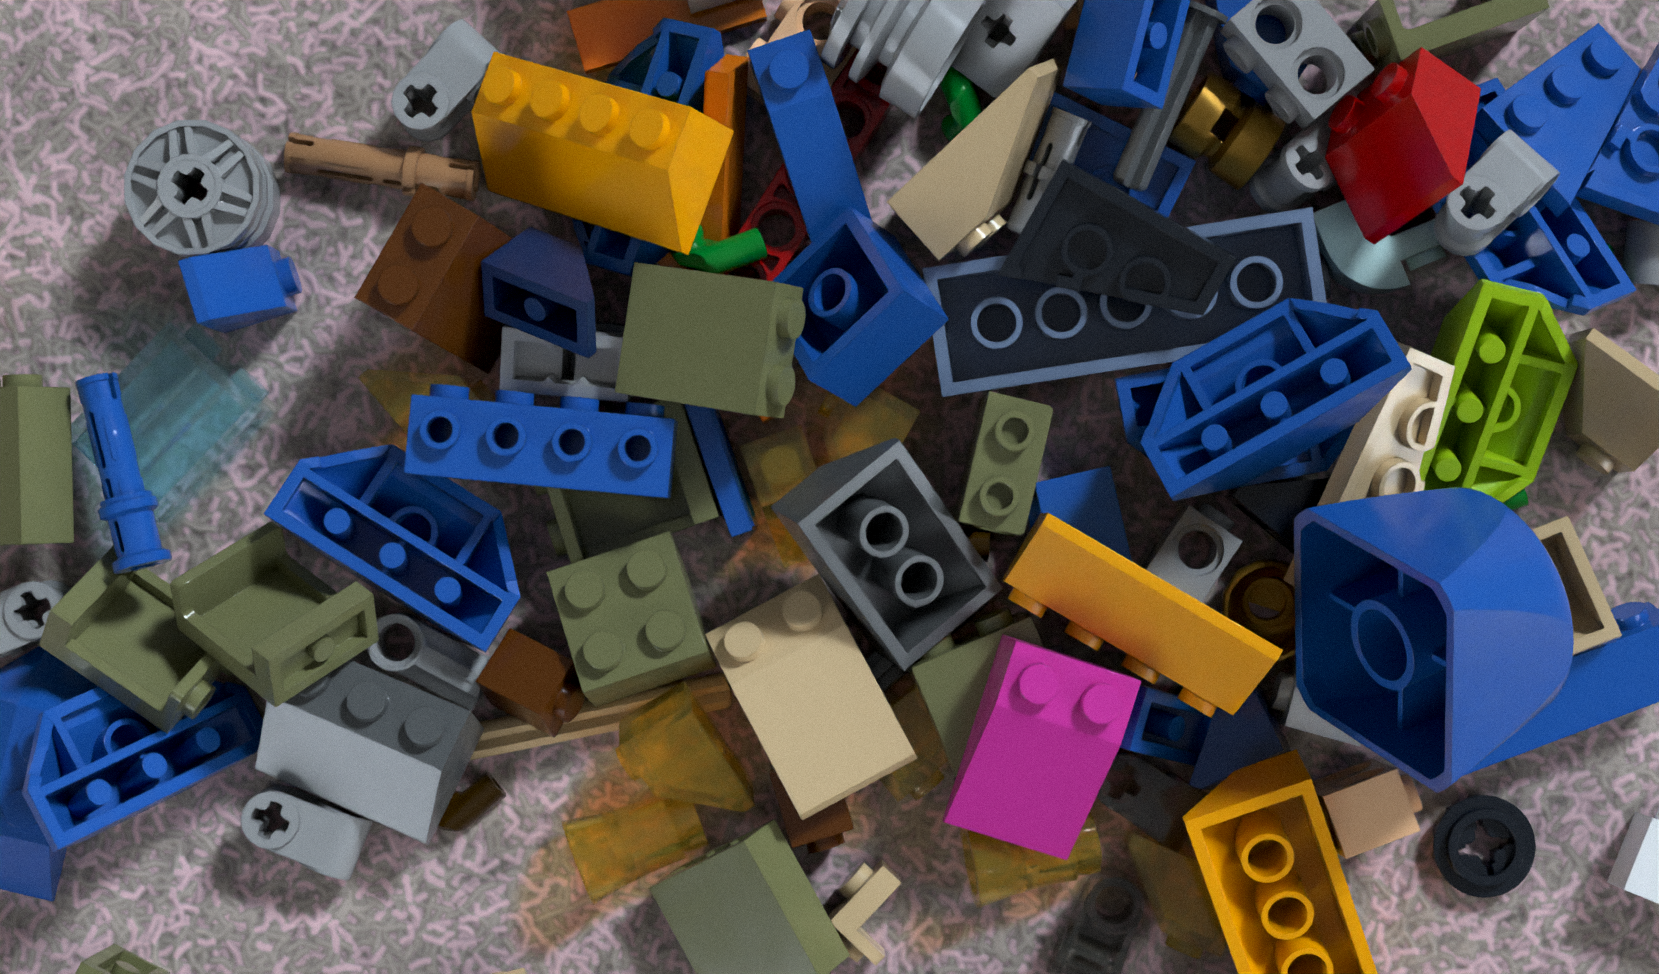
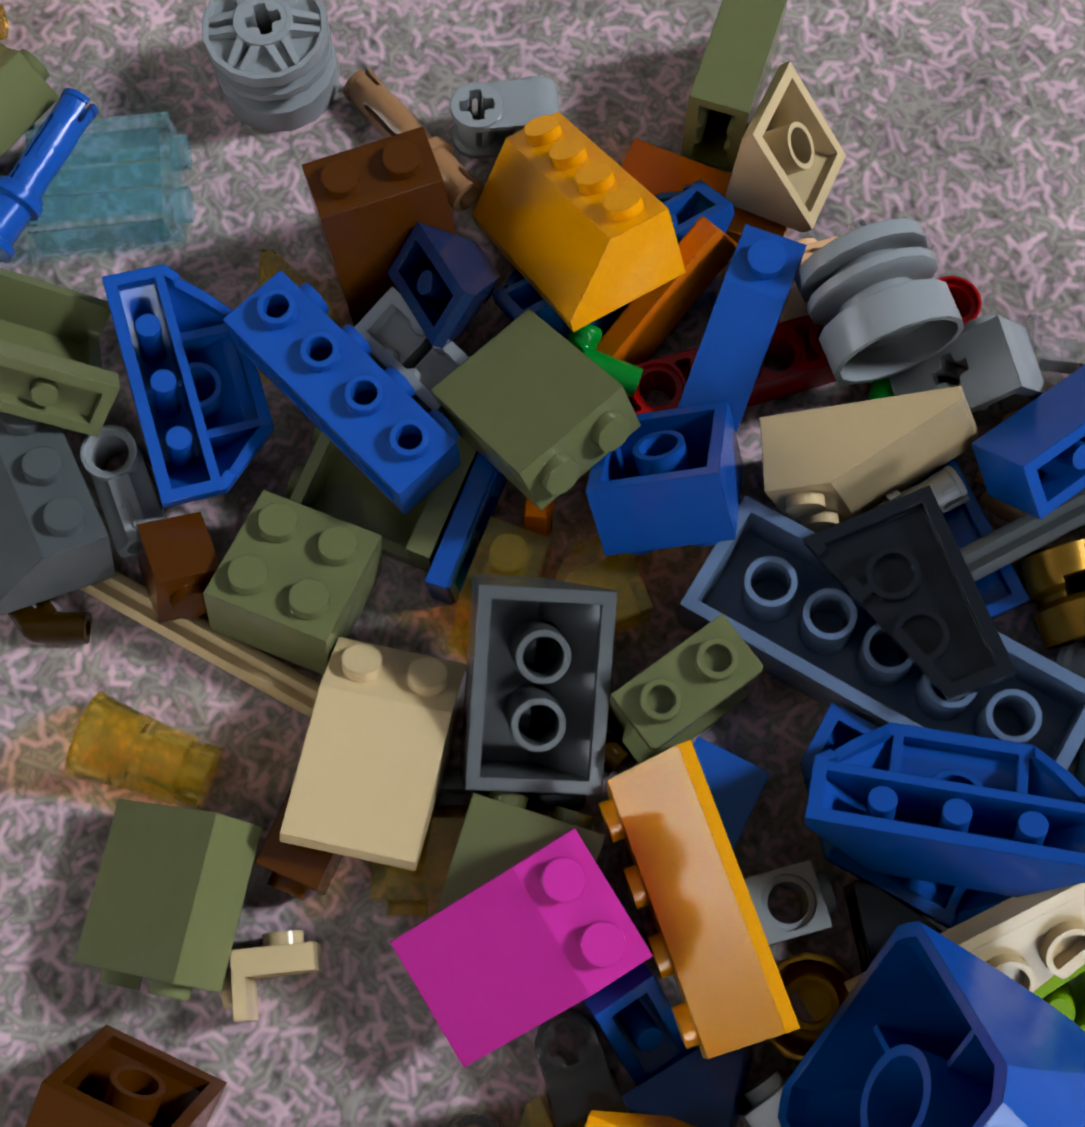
camera: 40 degrees right, 15 degrees down
(240, 287) = (235, 127): blue slope -> none
(682, 753) = (241, 719): clear yellow slope -> none
(1006, 869) = (413, 1039): clear yellow plant -> none

